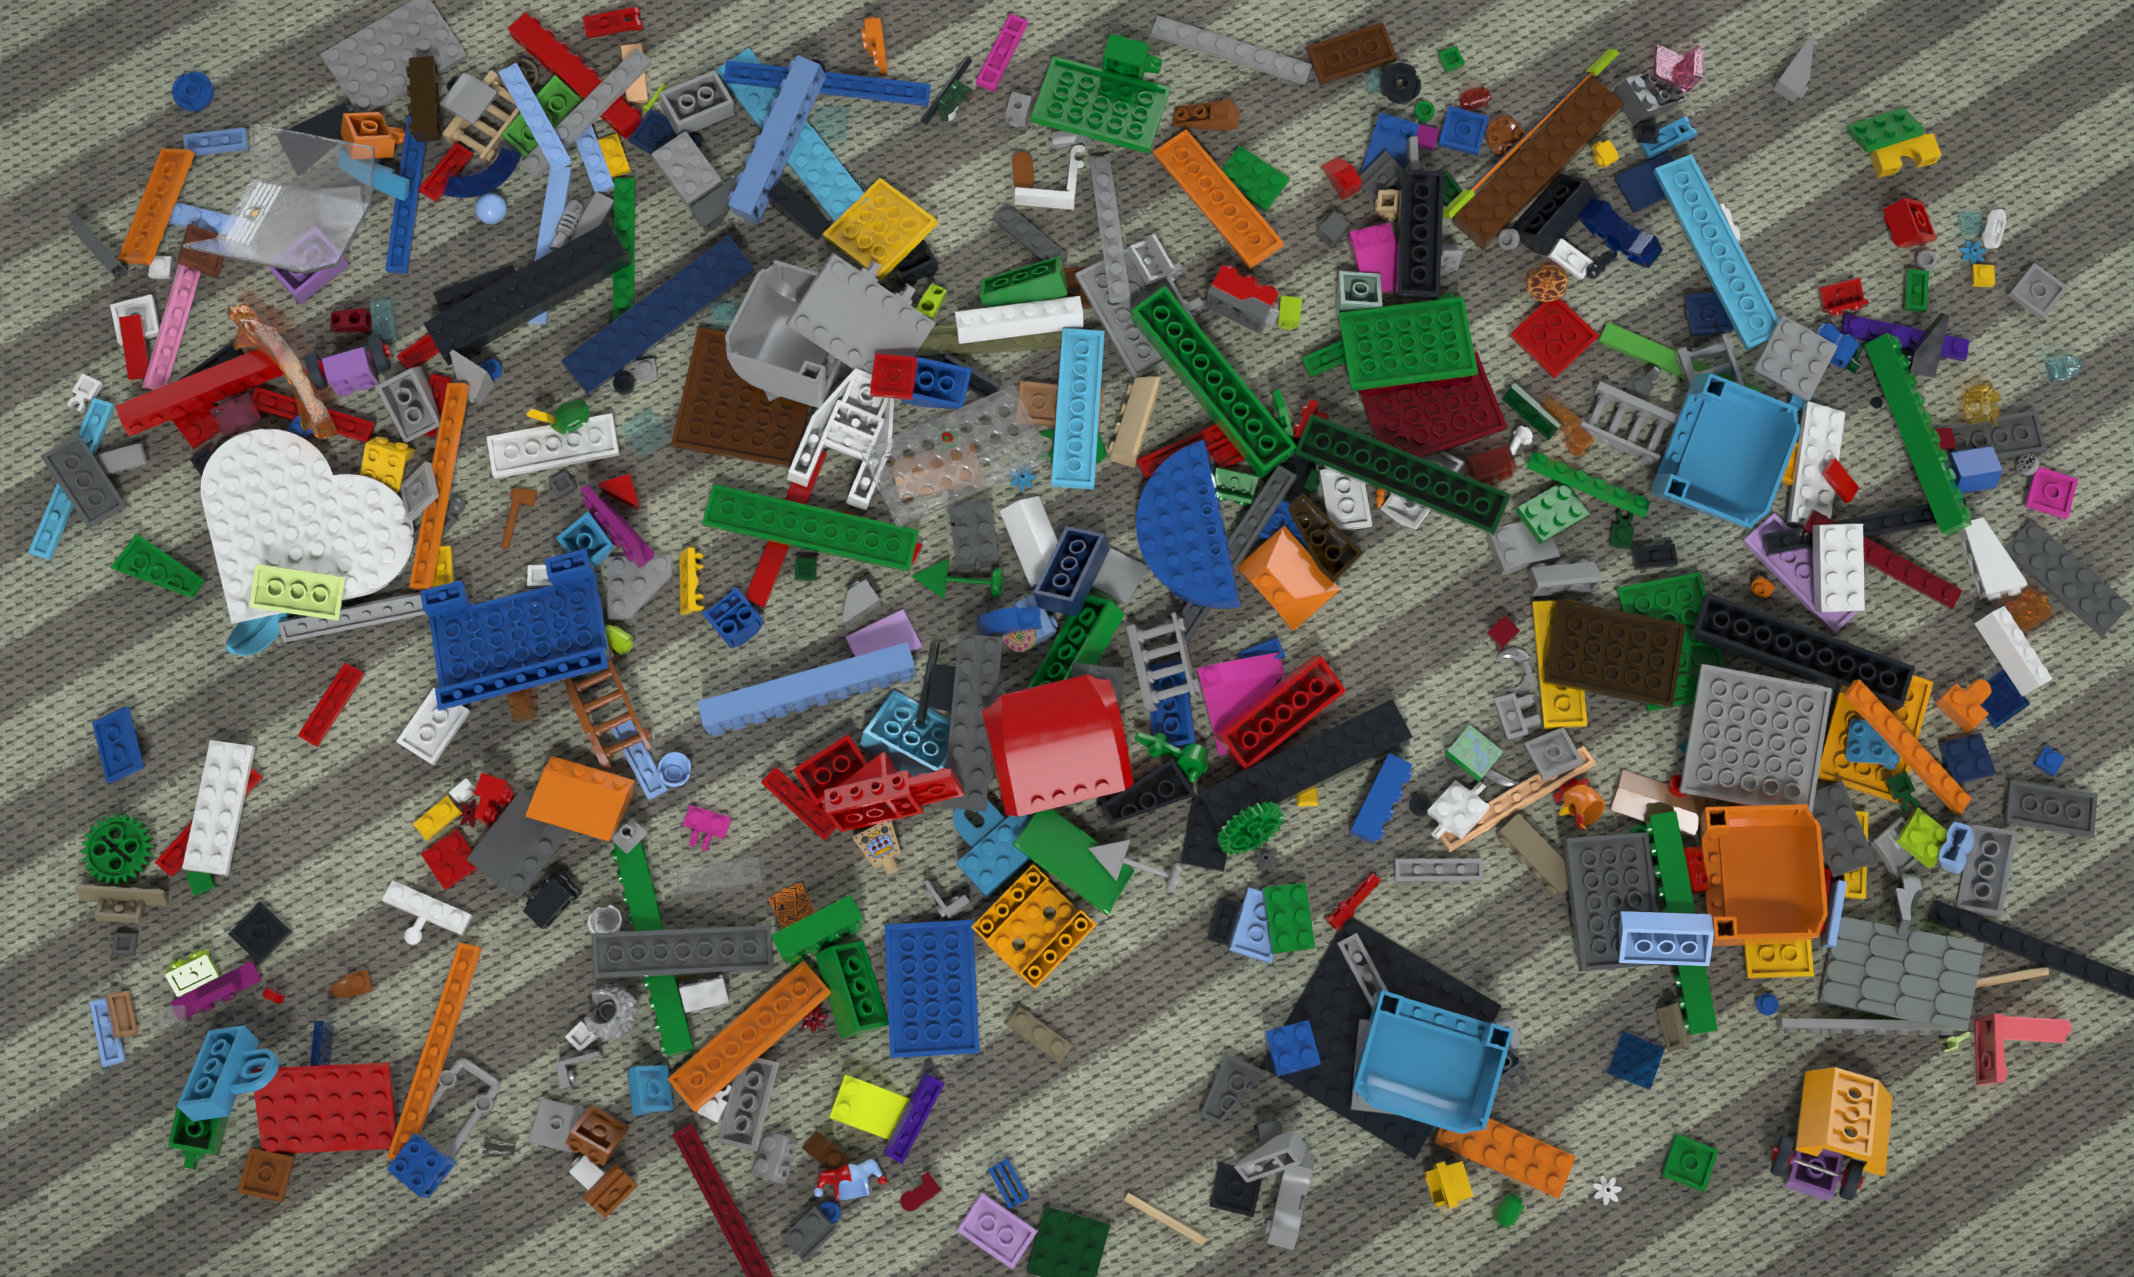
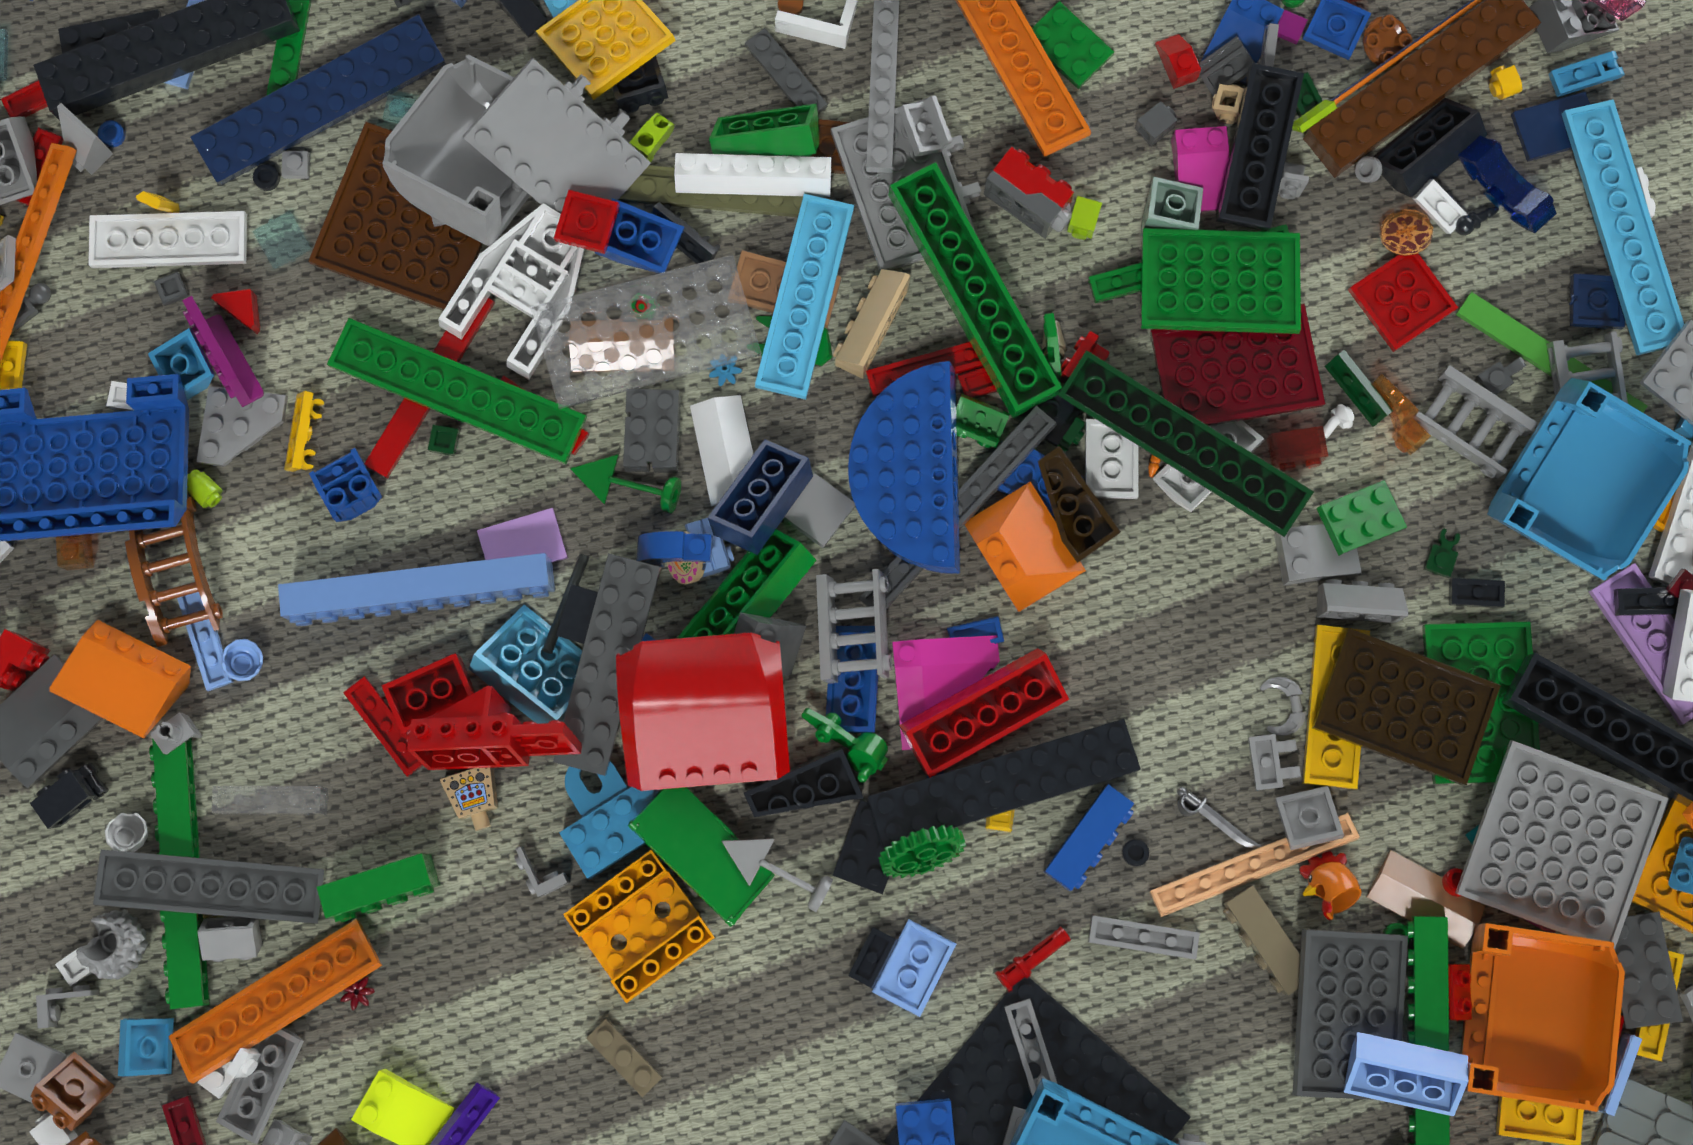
camera: 10 degrees right, 5 degrees up
(518, 496) = (116, 294): dark orange piece -> none
(570, 416) = (190, 205): green shield -> none
(706, 822) = (271, 730): dark pink hinge -> none
(734, 1088) = (244, 1063): none -> white plate
(791, 905) = (356, 850): orange piece -> none
(853, 989) = (410, 964): green slope -> none
(859, 602) = (499, 491): light grey slope -> none
(931, 989) = (504, 980): blue plate -> none
(1262, 862) = (941, 886): dark grey plant -> none
(1288, 918) = (950, 966): green plate -> none
(1458, 810) = (1180, 867): white plate -> none
(1474, 753) = (1212, 800): tile -> none
(1503, 632) = (1274, 657): dark red panel -> none
(1595, 487) = (1412, 490): green plate -> none
(1648, 132) = (1563, 64): black tile -> none
(1762, 587) = (1603, 652): orange plate -> none

